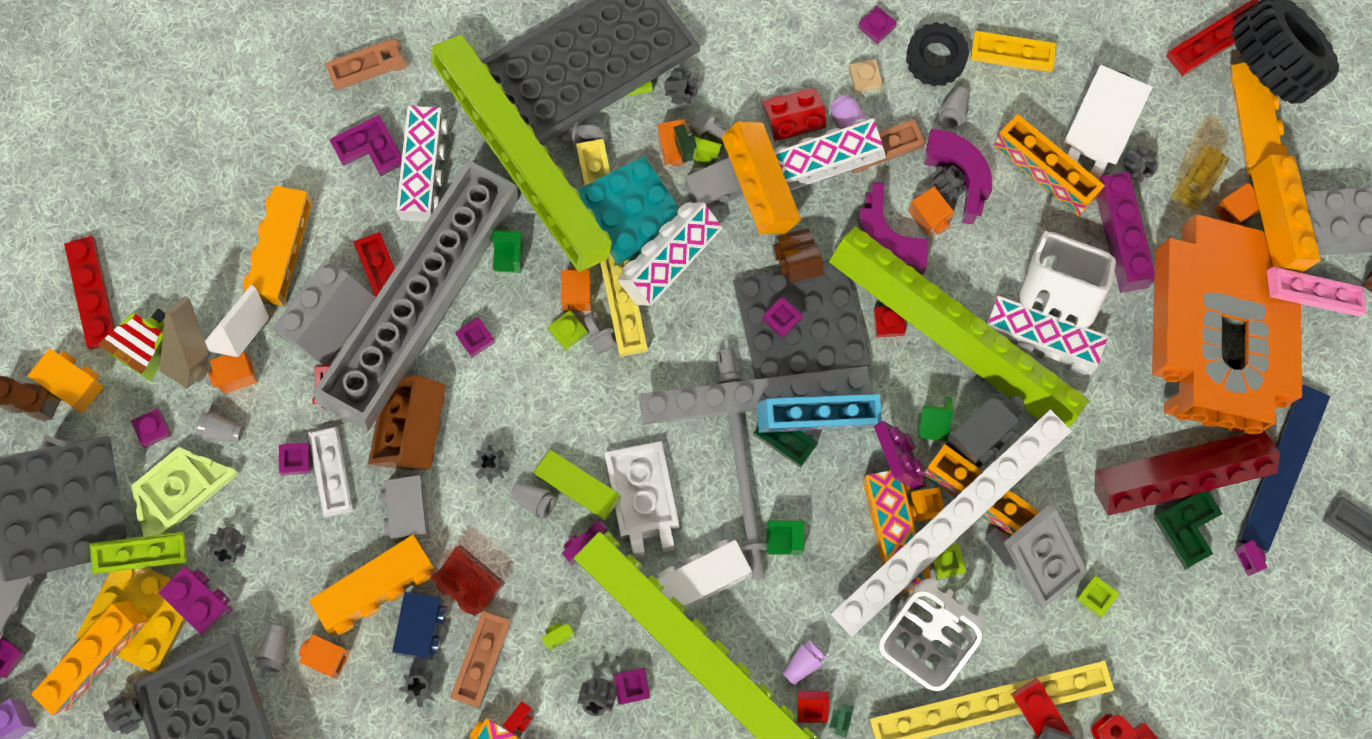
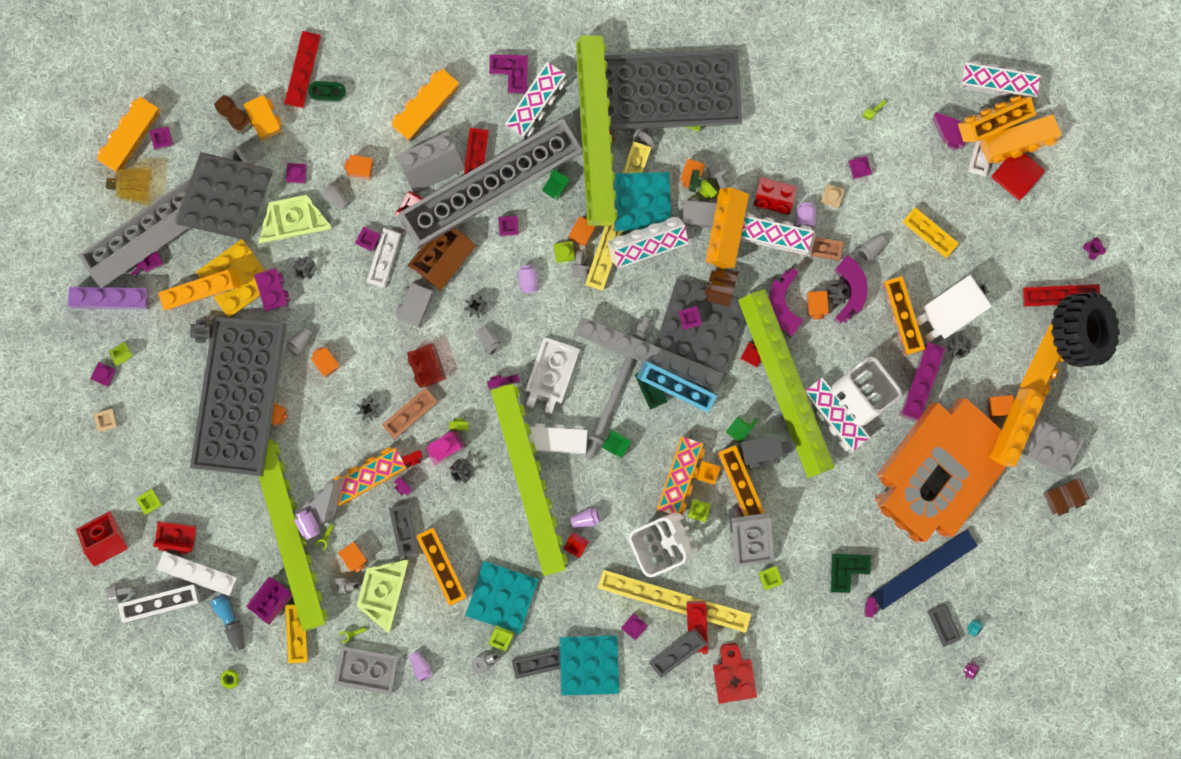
camera: 25 degrees right, 10 degrees up
(137, 552) = (253, 244): lime tile -> none
(138, 299) = (327, 91): none -> dark green plate
(138, 343) = (316, 119): torso -> none
(183, 346) = (340, 139): dark tan slope -> none
(239, 325) = (376, 142): white slope -> none
(366, 64) = (537, 16): nougat plate -> none
(372, 586) = (373, 338): light orange brick -> none
(419, 626) = (386, 375): dark blue brick -> none
(540, 389) = (528, 279): none -> lavender brick
(555, 678) = (445, 447): none -> dark pink torso
(577, 485) = (517, 346): lime tile -> none
(631, 686) = (483, 476): magenta plate -> none
(681, 87) = (716, 141): dark grey gear -> none
(841, 720) = (586, 561): clear green plate -> none
(899, 455) = (707, 436): magenta plate -> none
(941, 34) = (890, 195): black tyre -> none
(950, 523) = (711, 490): white plate -> none
(1186, 472) = (864, 539): dark red brick -> none
(1203, 172) = (988, 375): clear yellow torso -> none
(1316, 291) = (1008, 482): bright pink tile -> none

